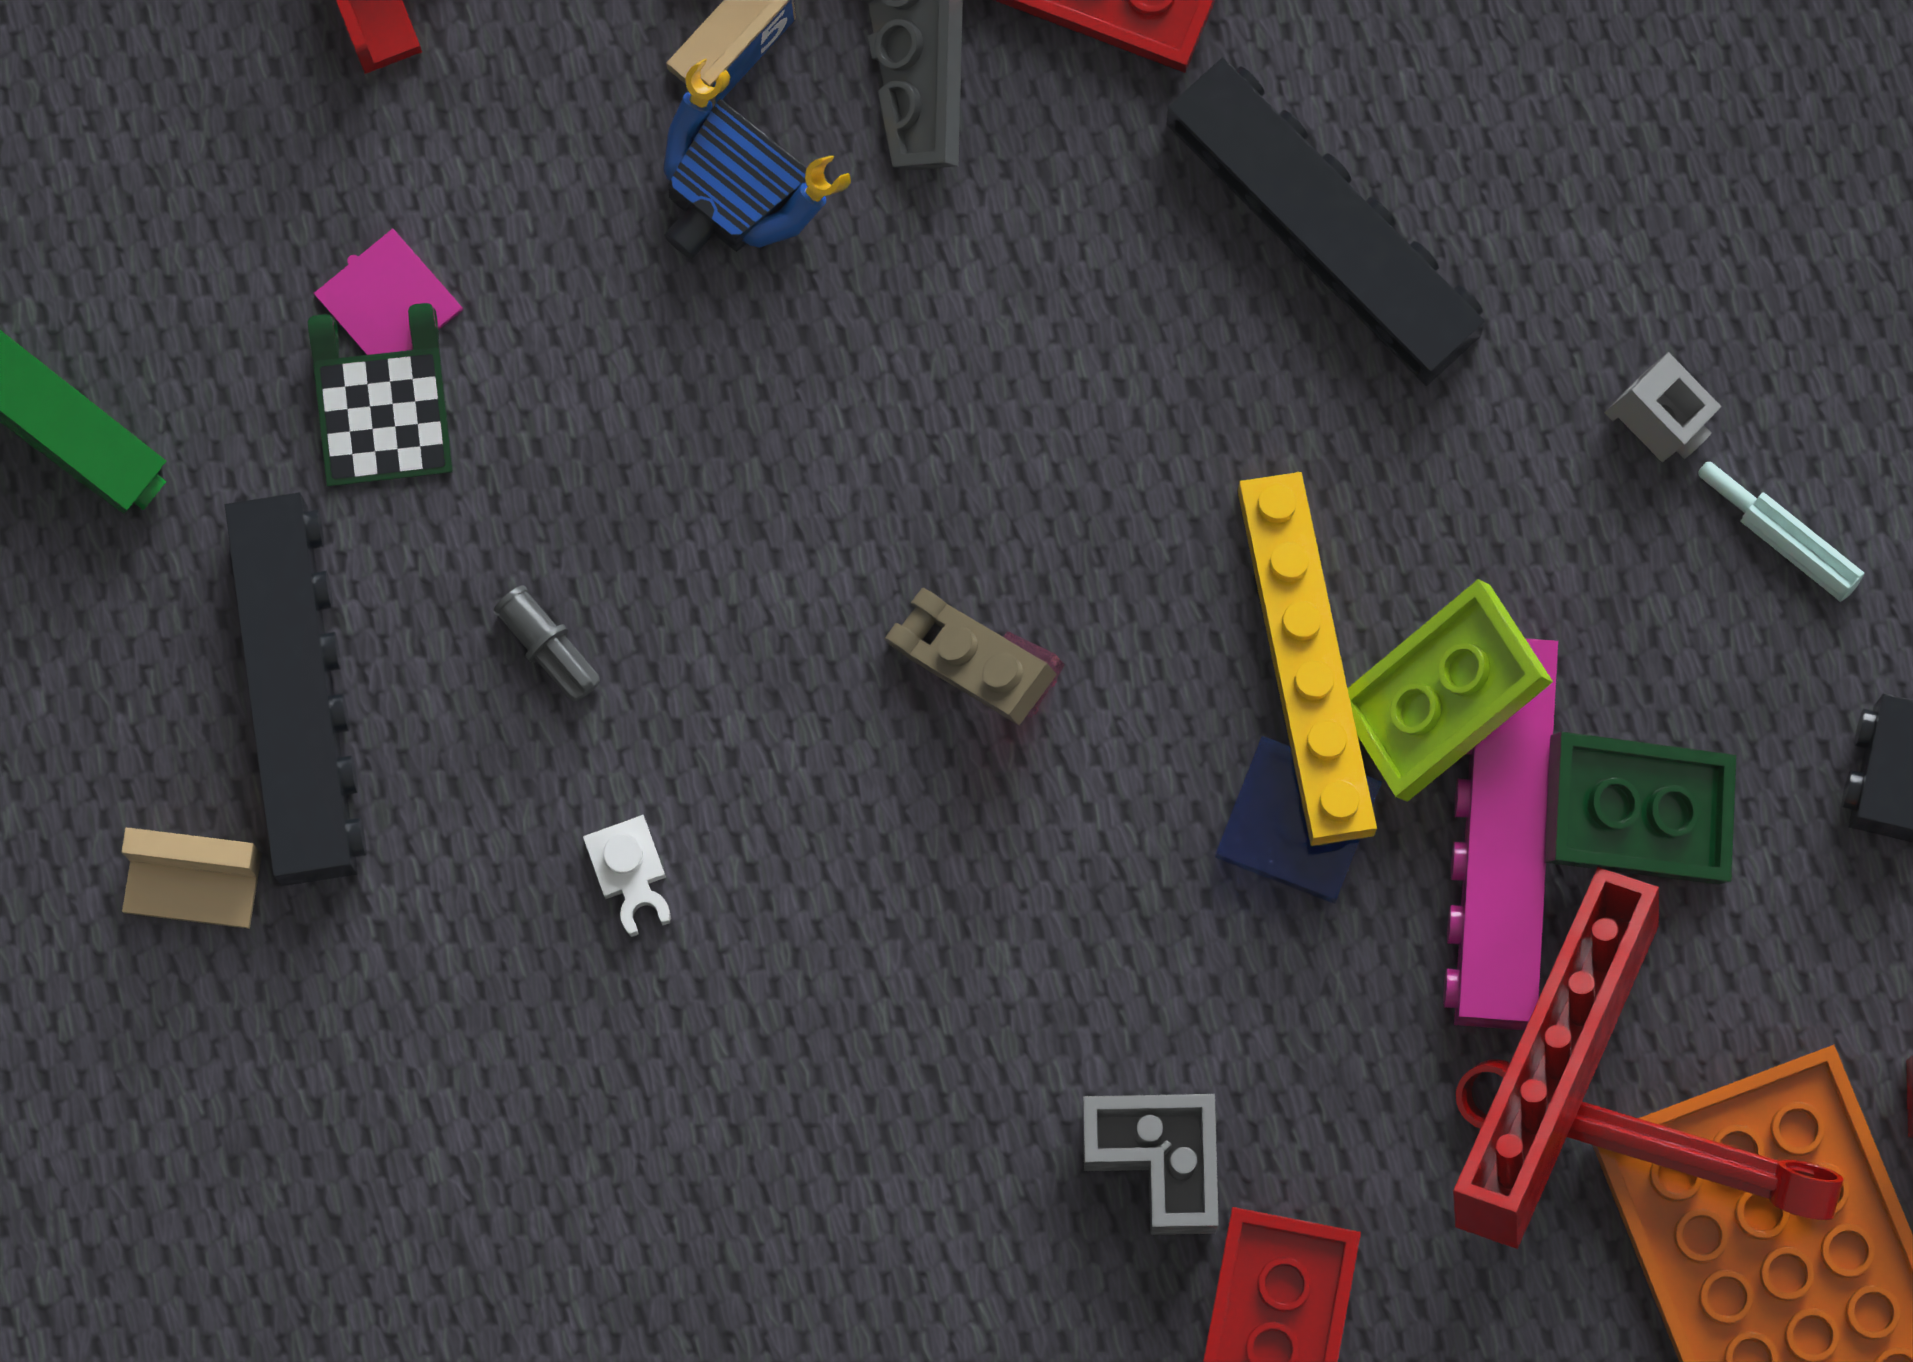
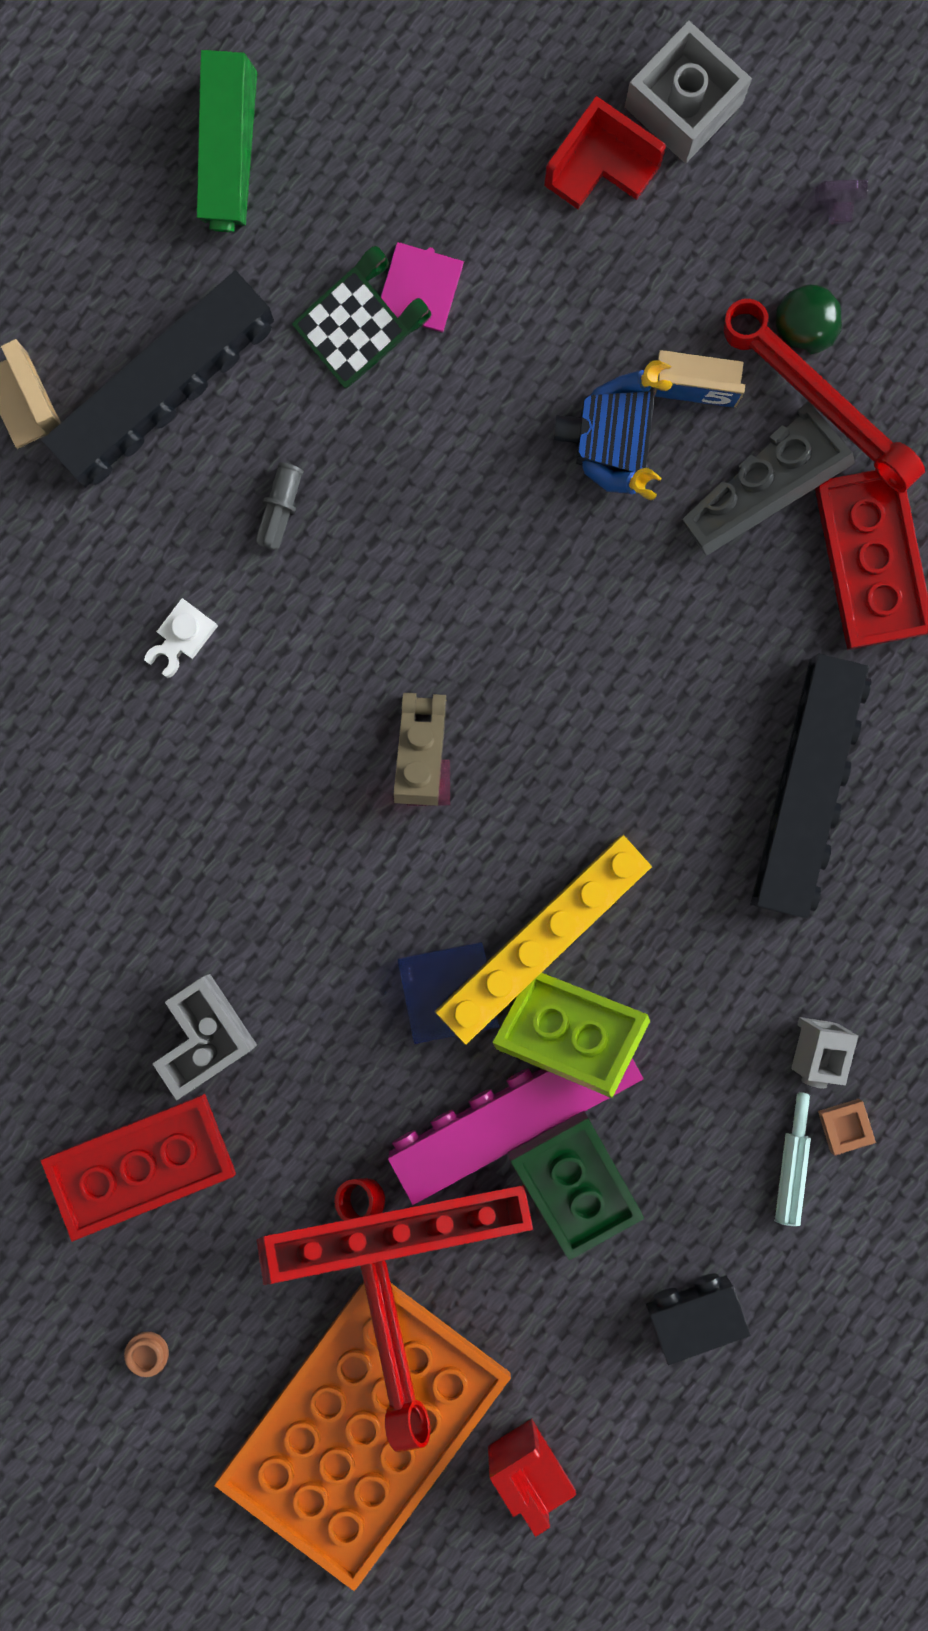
camera: 50 degrees right, 10 degrees up
(1776, 440) = (846, 1127): none -> nougat plate

